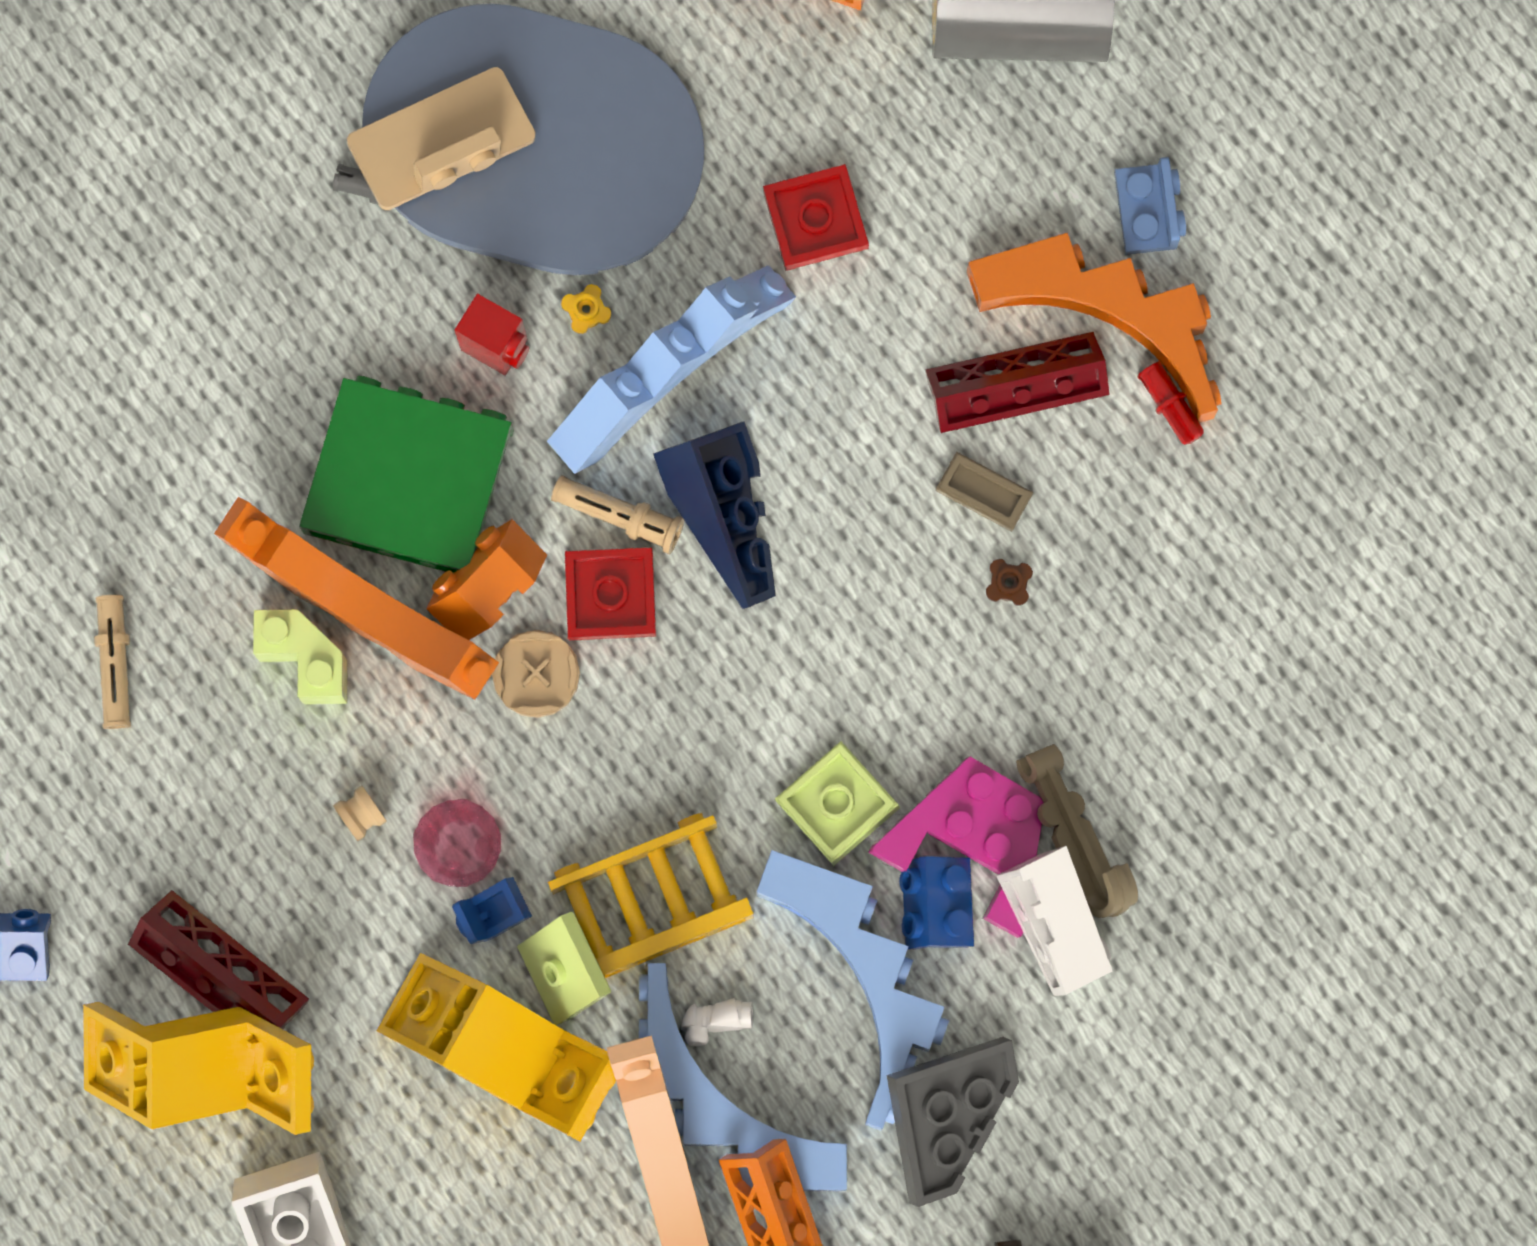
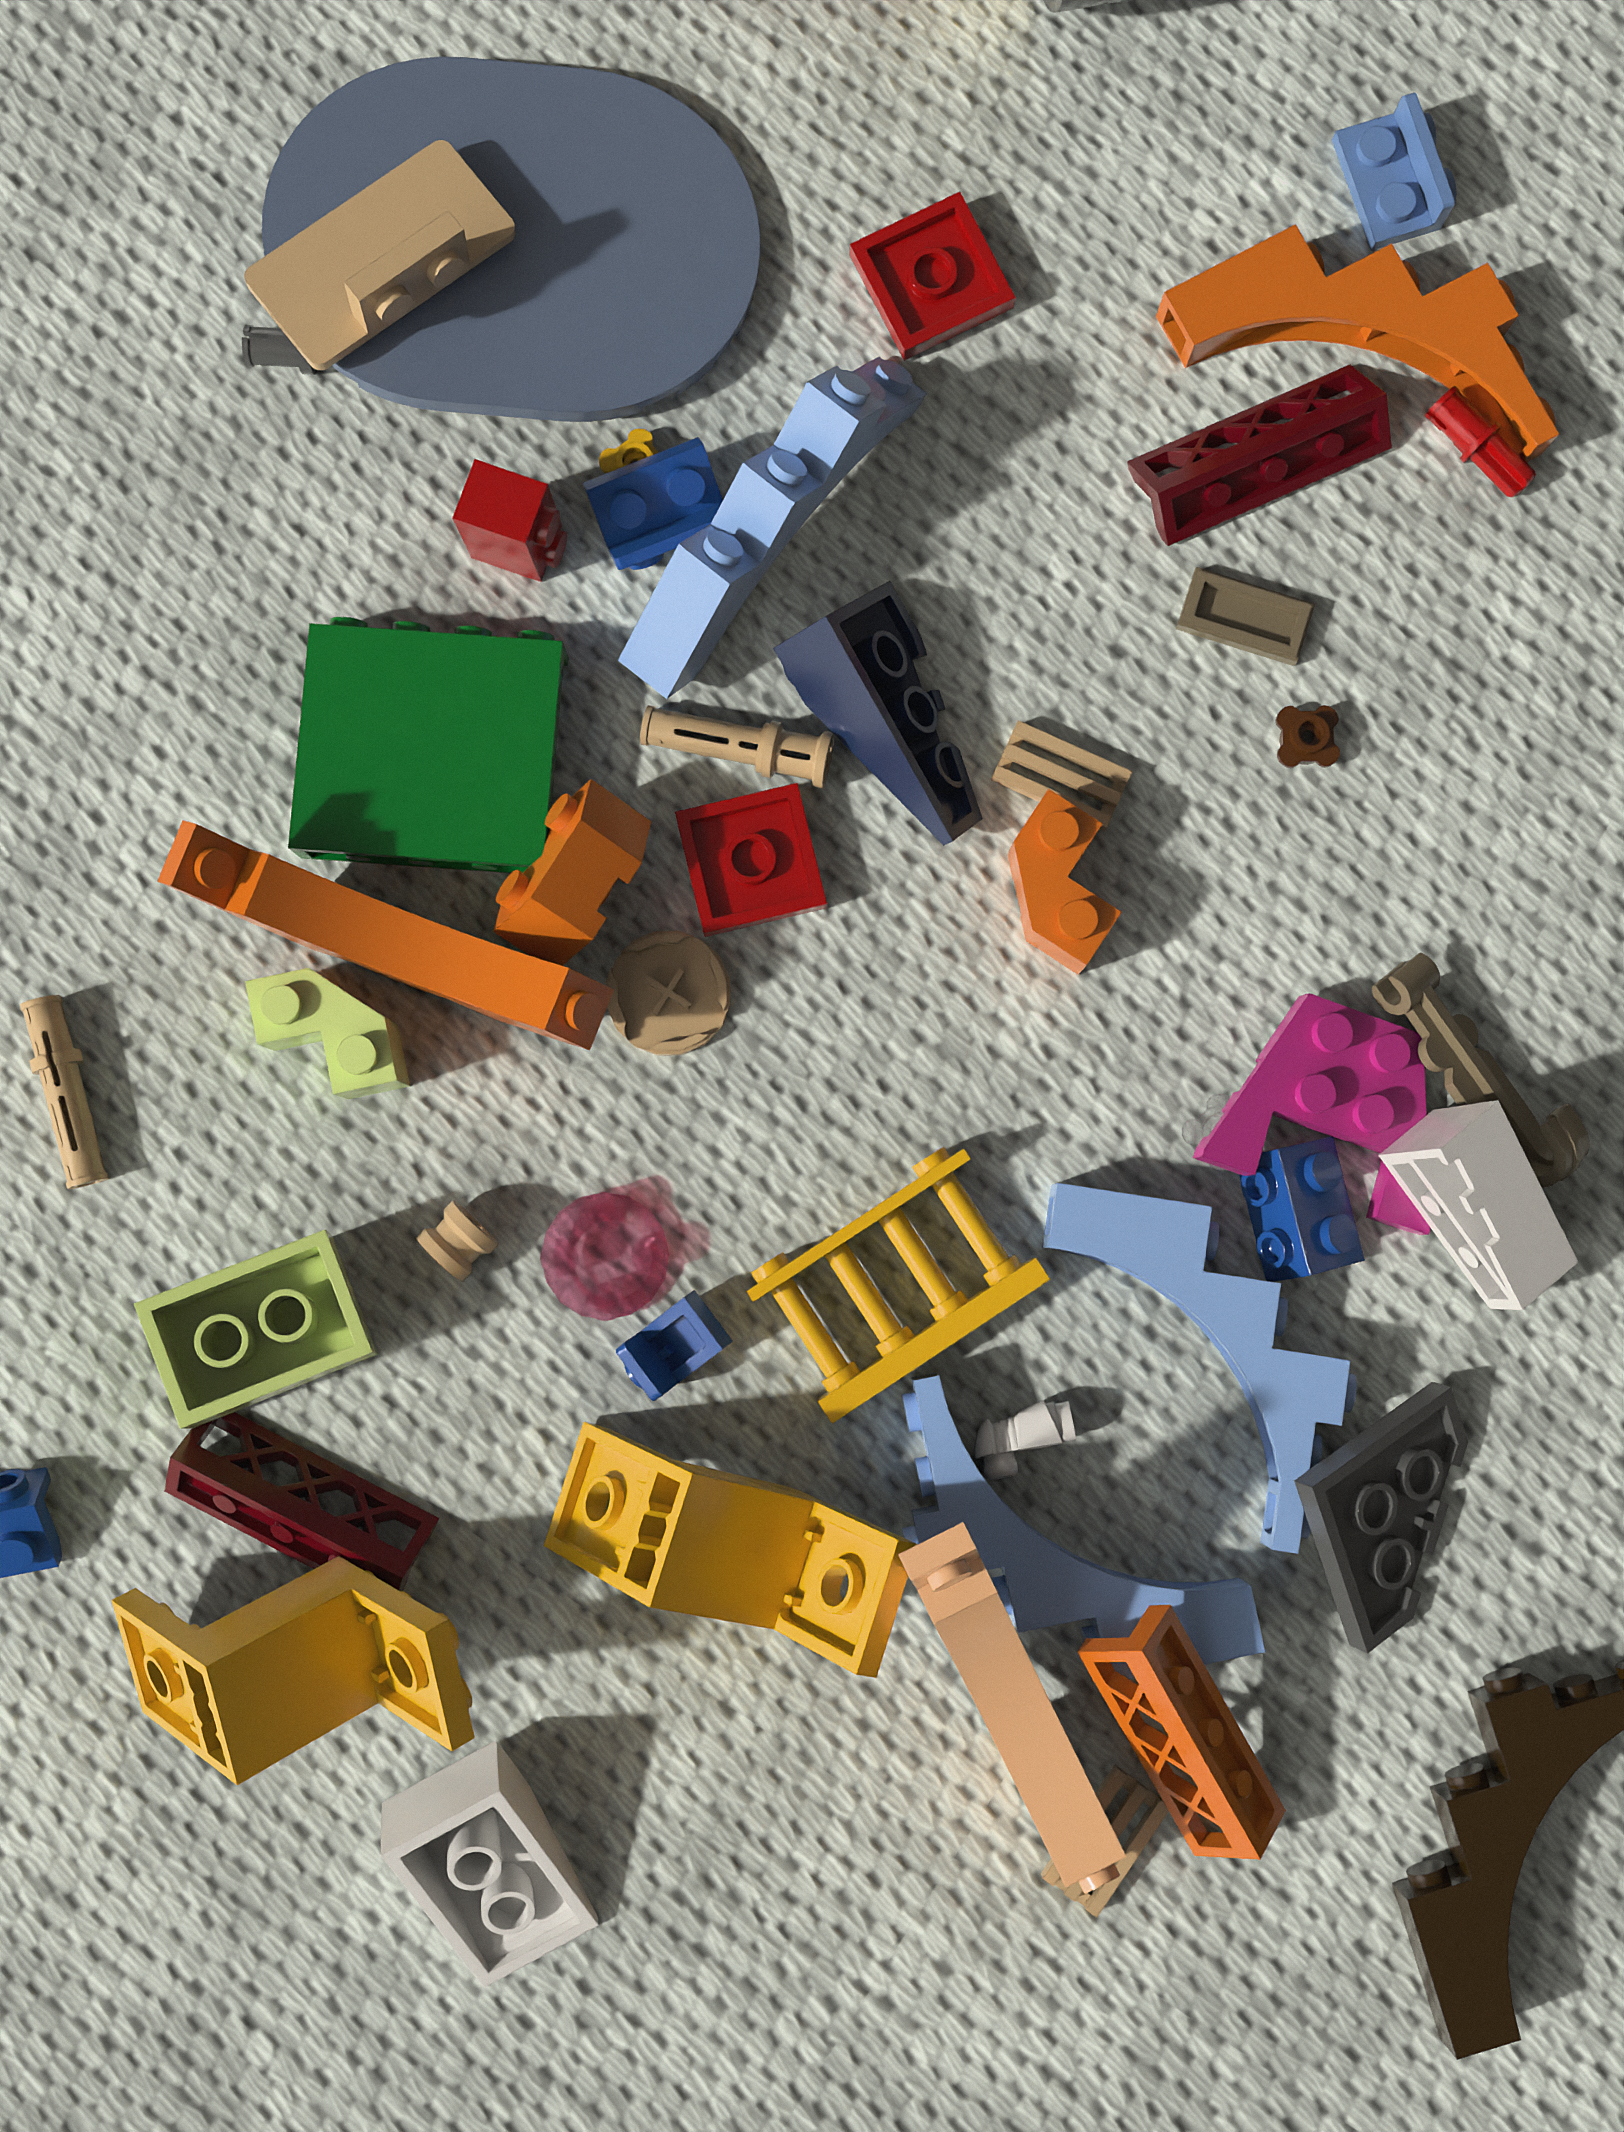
camera: 10 degrees left, 5 degrees up
(216, 844) = (255, 1329): none -> yellowish green brick
(564, 968) = (796, 1411): yellowish green plate -> none
(593, 340) = (654, 503): none -> blue bracket
(805, 555) = (1070, 753): none -> tan tile
(810, 630) = (1054, 909): none -> orange brick
(837, 803) = (1131, 1095): yellowish green plate -> none

